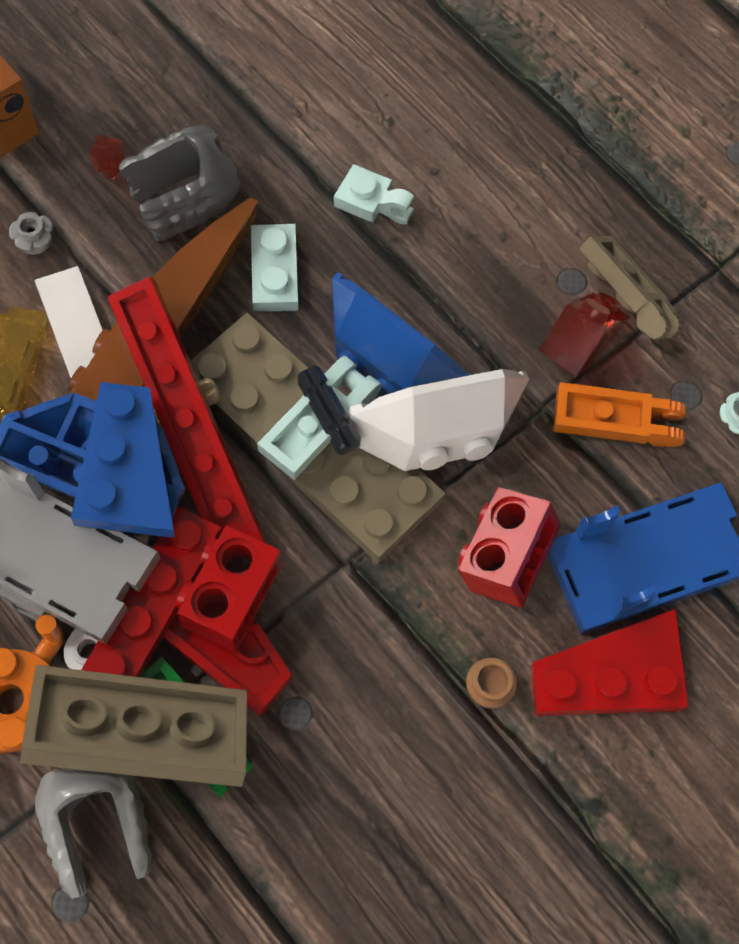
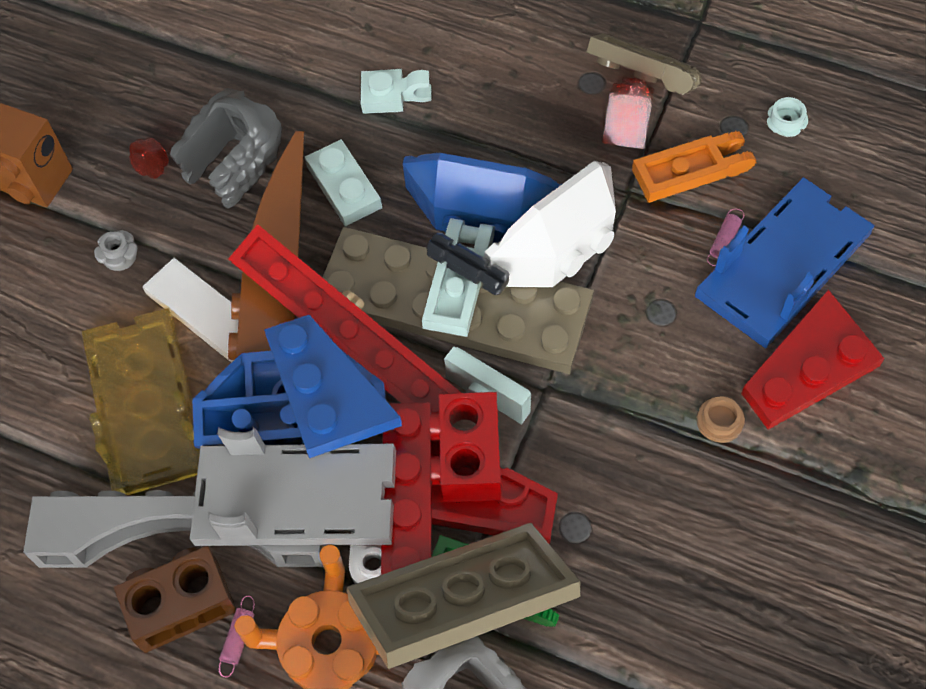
camera: 20 degrees left, 5 degrees down
(288, 535) = (478, 377): none -> light aqua plate
(518, 548) = (679, 302): red brick -> none
(617, 496) = (726, 233): none -> bright pink piece

